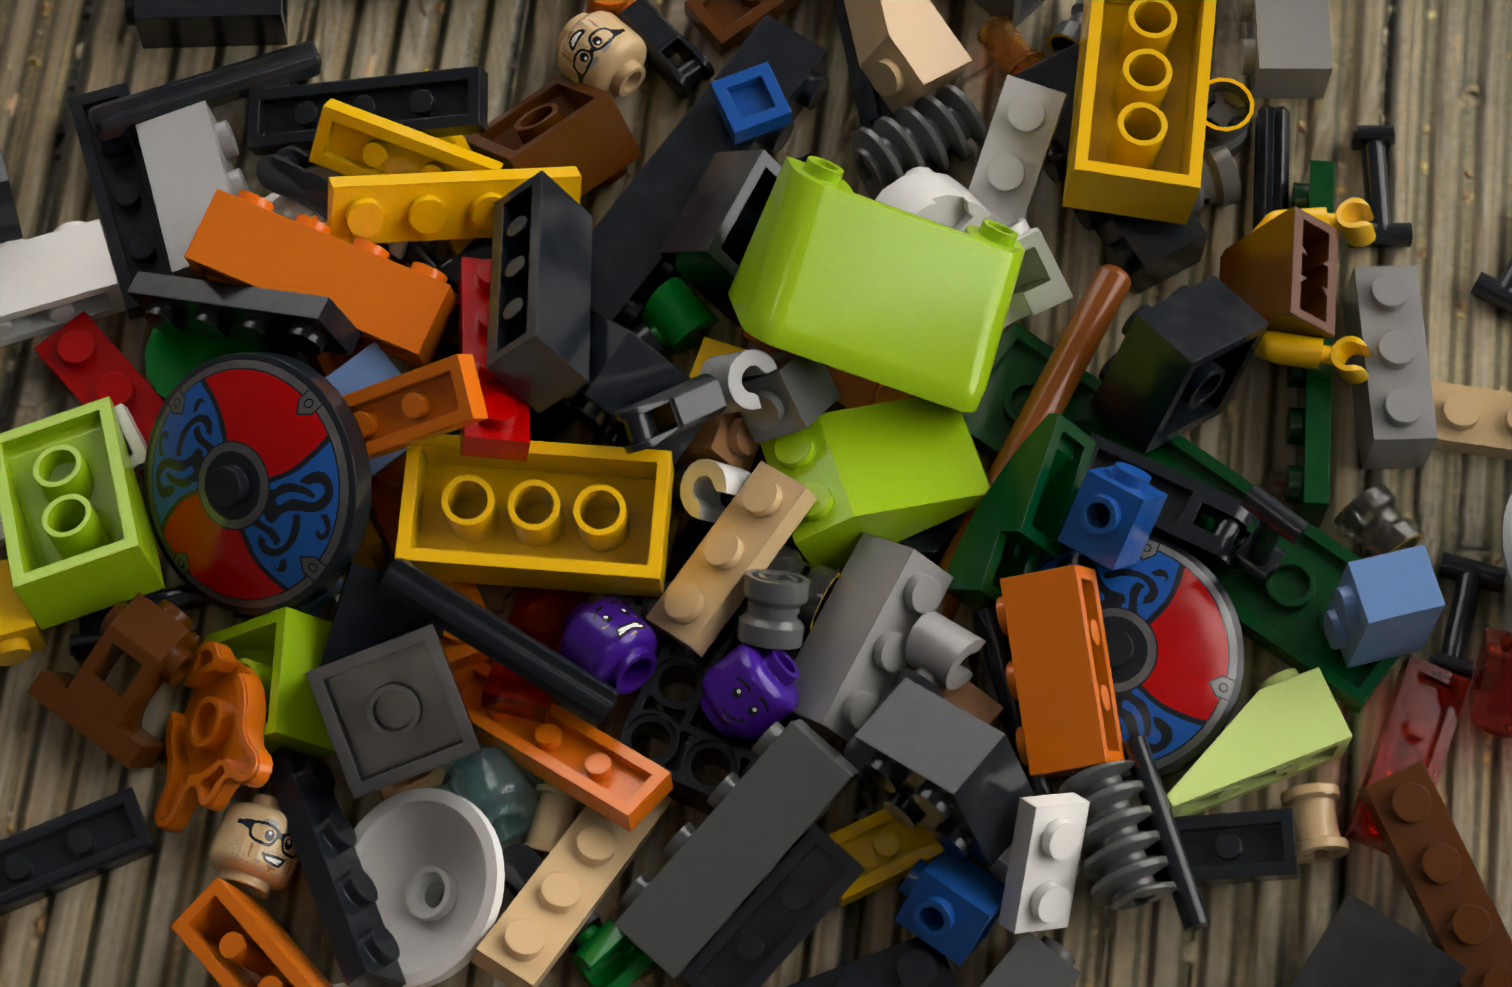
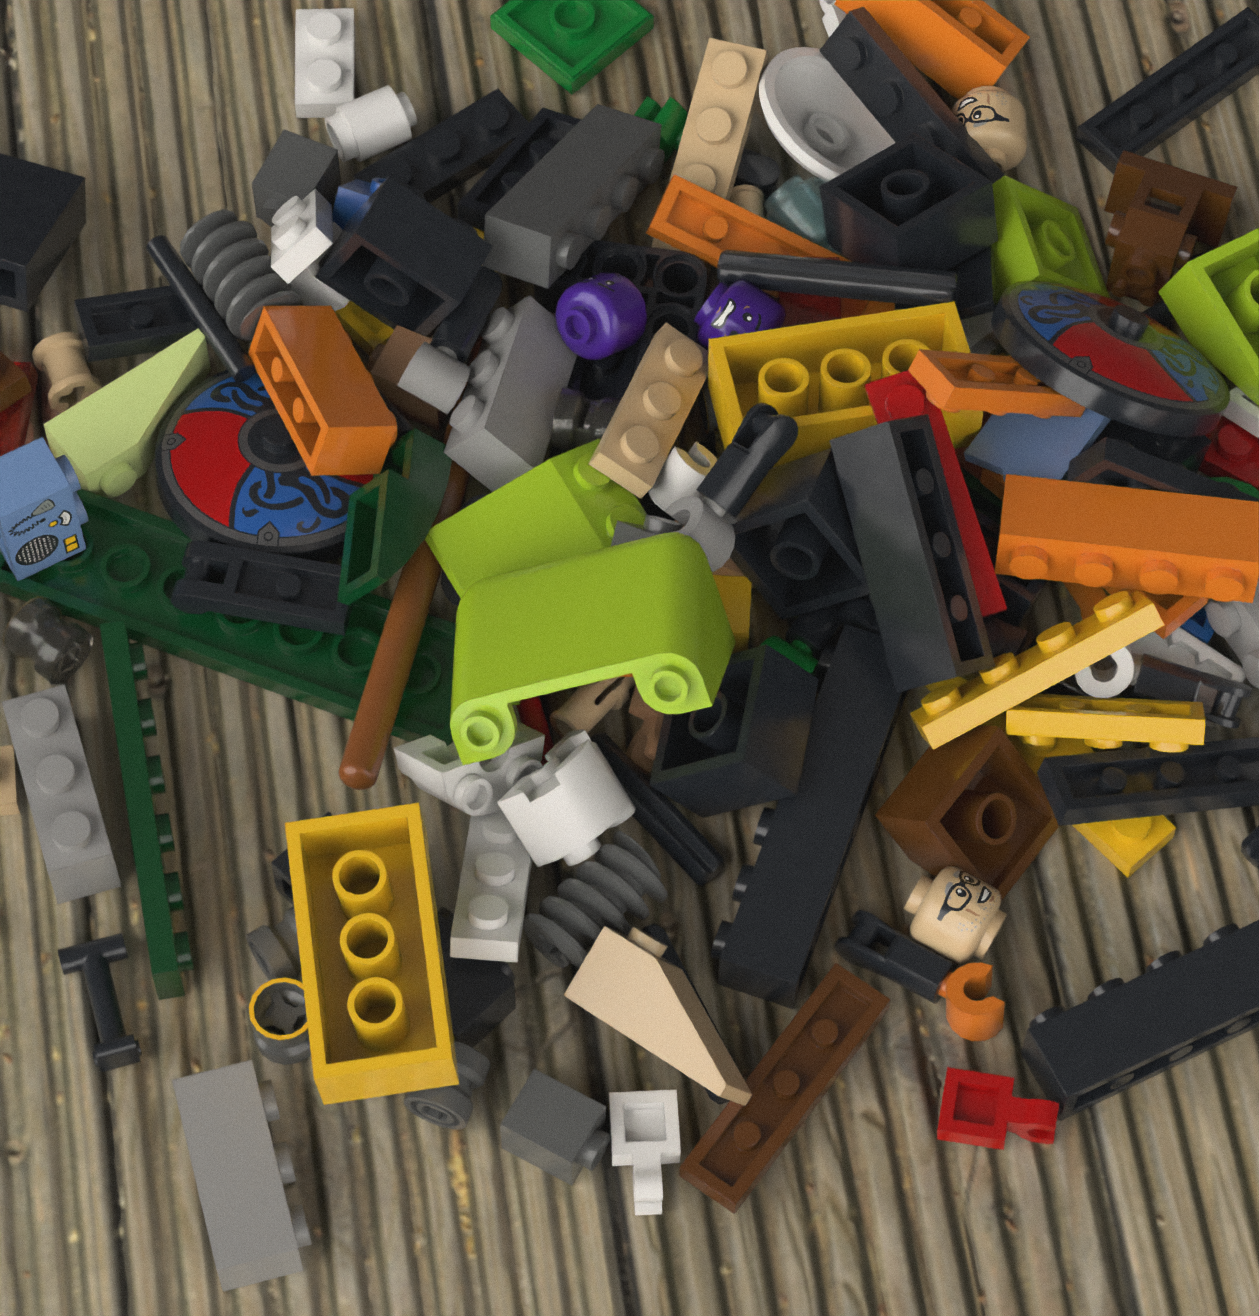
camera: 165 degrees right, 5 degrees down
(215, 740) = (1059, 193): orange tile -> none
(751, 103) = (777, 856): blue plate -> none
(773, 609) = (594, 349): dark grey wheel -> none
(1007, 46) = (523, 1043): clear orange pin -> none
(1113, 515) = (304, 517): blue brick -> none
(1177, 363) = (272, 699): black brick -> none
(1259, 552) = (155, 528): black piece -> none
(1271, 161) = (215, 970): black axle -> none
(1291, 280) = (182, 810): reddish brown torso -> none

